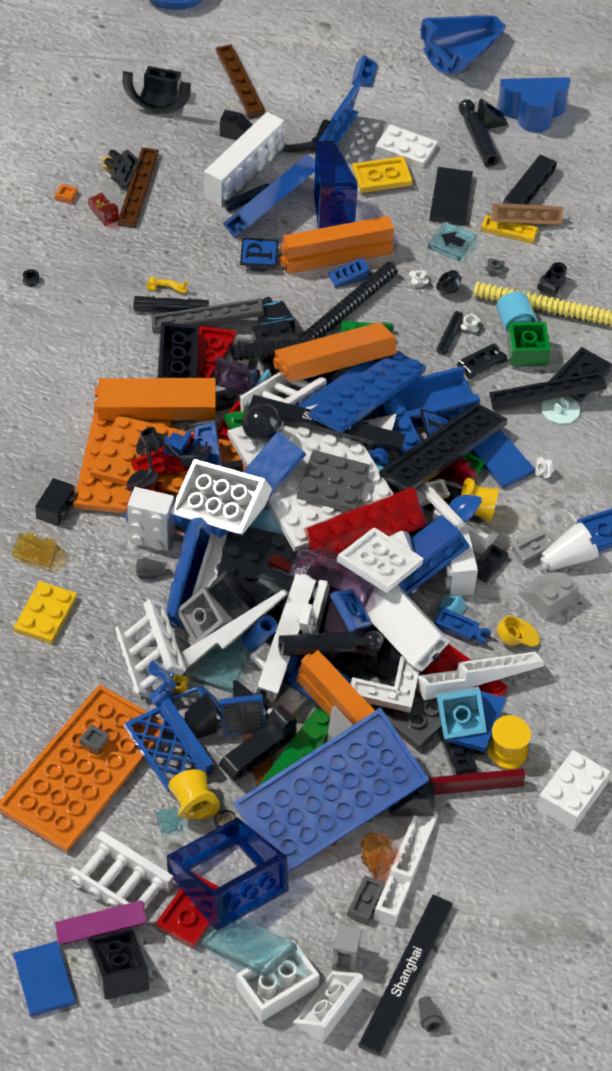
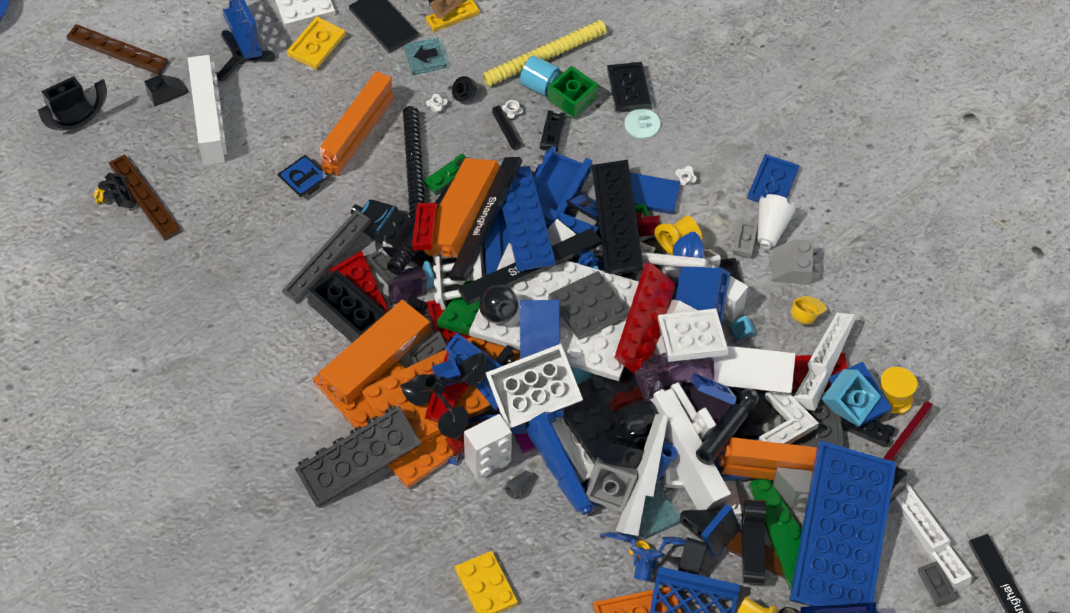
camera: 45 degrees left, 5 degrees up
(29, 273) = (151, 332): black bush -> none
(35, 550) = (423, 545): clear yellow bracket -> none
(55, 502) = (393, 496): black brick -> none
(60, 453) = (357, 455): none -> black bracket
(66, 194) = (94, 247): orange tile -> none
(102, 207) = (140, 236): clear red leg -> none
(153, 304) = (285, 271): black piece -> none
(154, 282) = (272, 252): yellow piece -> none
(166, 647) = (616, 531): white fence -> none
(243, 198) = (237, 139): black axle -> none
(270, 196) = (262, 123): blue brick -> none
(287, 340) = (424, 226): none -> red plate
(333, 187) = (330, 75): clear blue windscreen -> none
(340, 371) = (485, 219): none -> black tile
(360, 270) = (388, 128): blue slope -> none
(377, 853) = (910, 545): clear orange hair -> none
(461, 626) = (768, 336): blue plate -> none
(494, 266) = (477, 56): dark grey plate -> none
(547, 390) = (626, 117): black plate -> none
(553, 279) = (529, 29): black piece -> none
(573, 790) = (966, 387): white brick -> none

